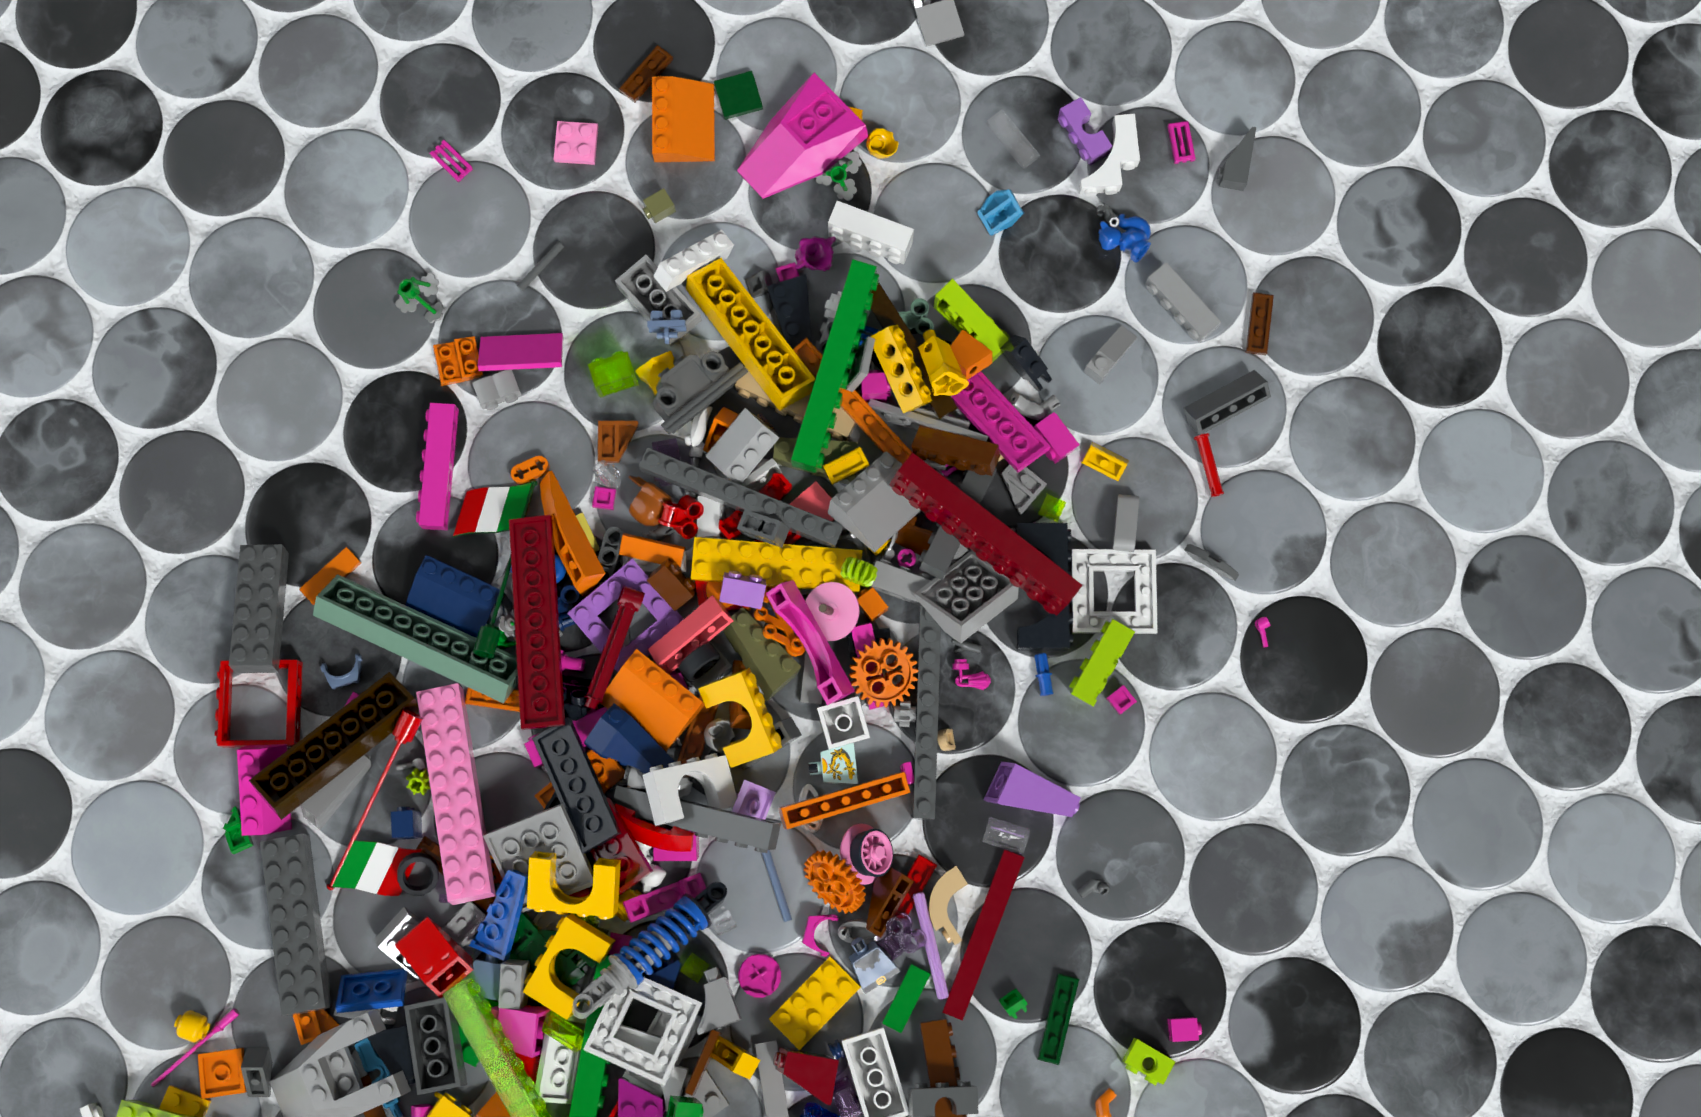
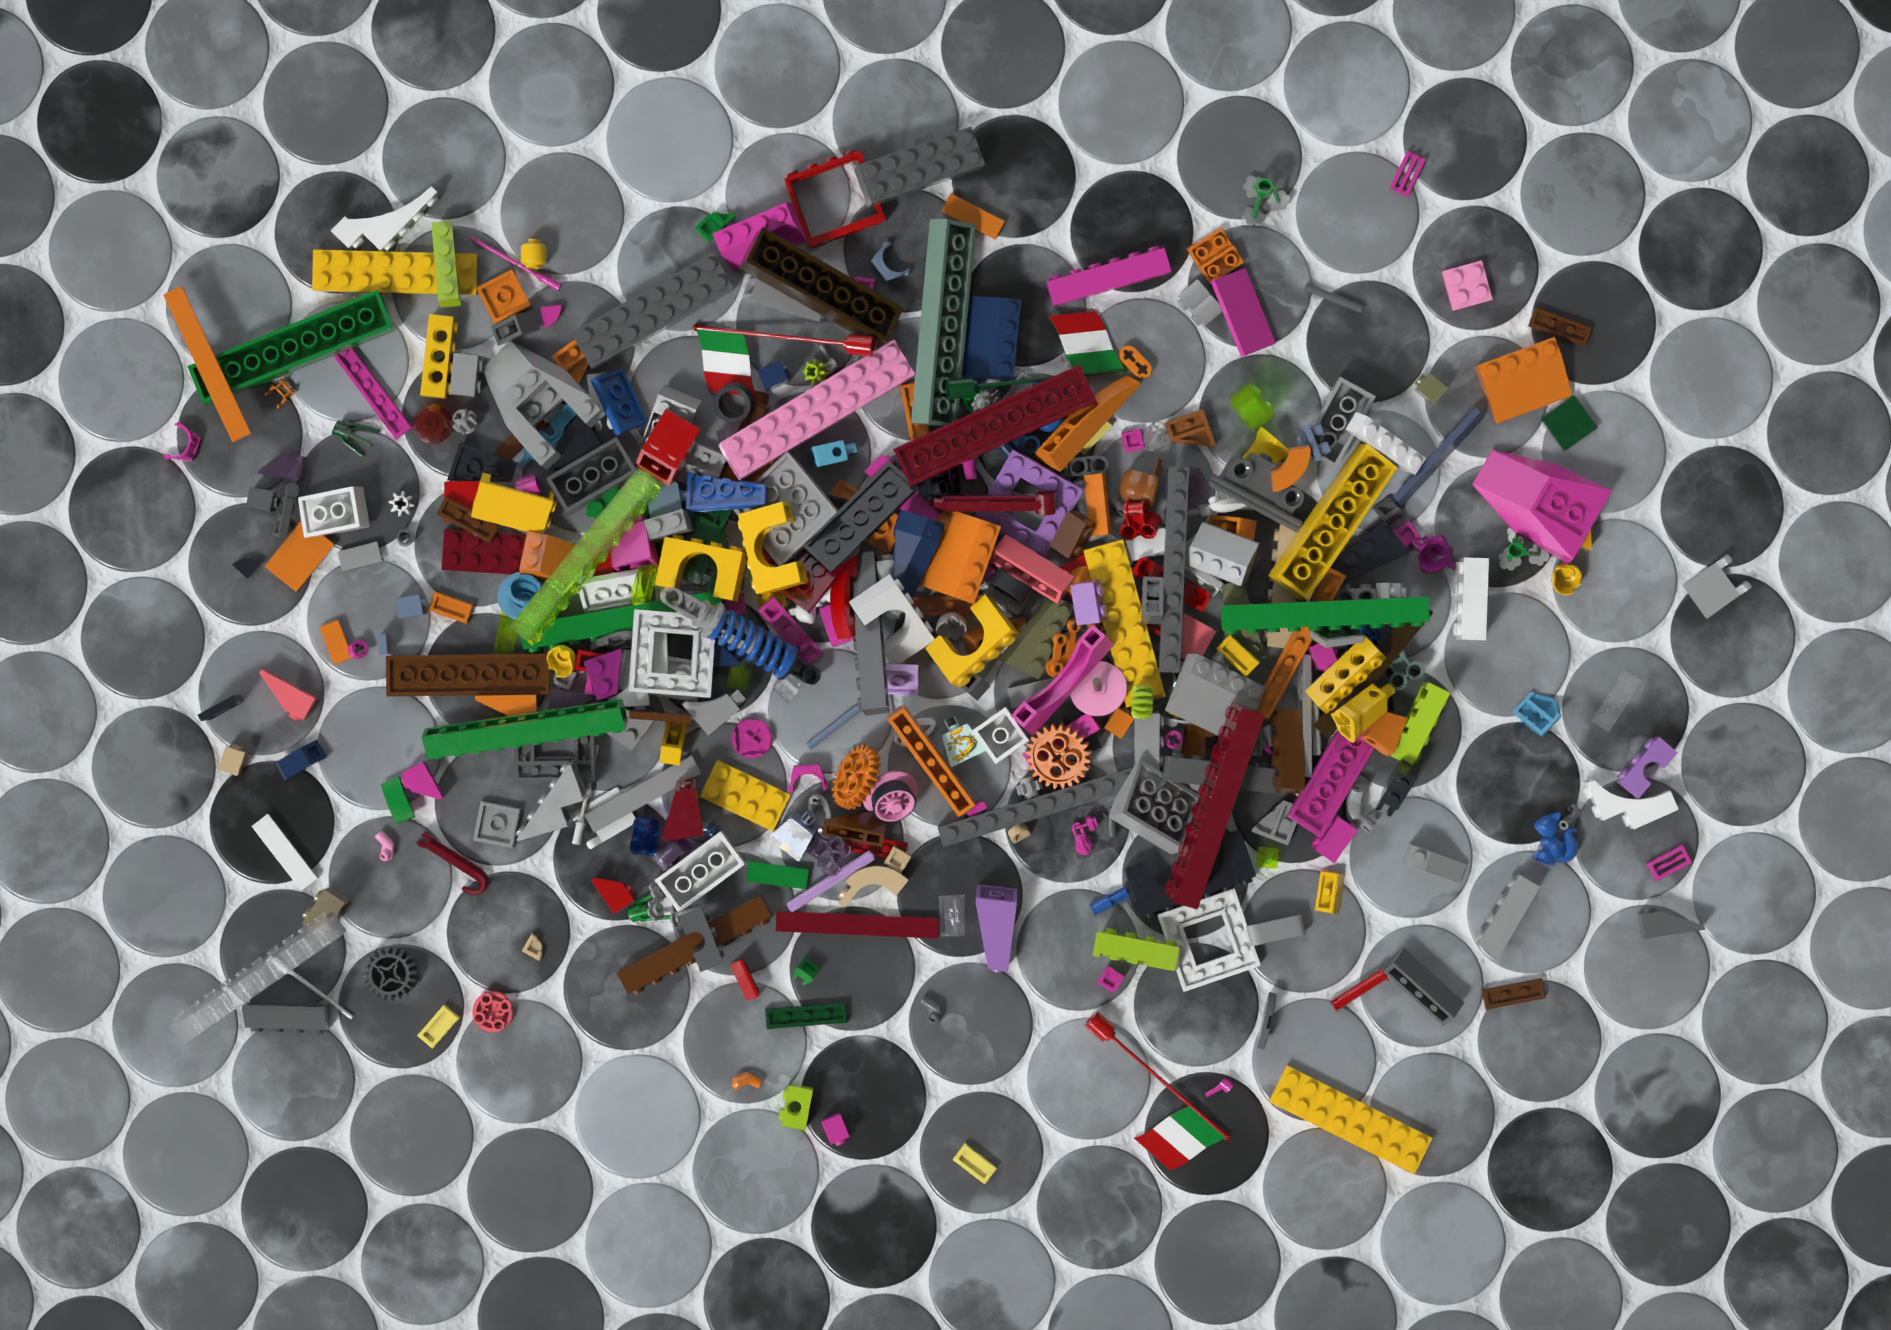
camera: 75 degrees right, 10 degrees up
(260, 1031) = (550, 315): none -> dark pink tile
(505, 803) = (822, 455): none -> medium azure torso
(610, 1084) = (612, 642): none -> dark grey tile
(684, 351) = (1291, 469): none -> orange tile
(725, 220) = (1438, 457): none -> dark blue tile
(931, 869) = (897, 859): none -> tan tile
(1001, 1069) = (745, 979): none -> red slope
(1262, 899) = (974, 1163): none -> light yellow tile
(1296, 684) = (1181, 1133): none -> flag
(1333, 516) = (1350, 1119): none -> yellow plate

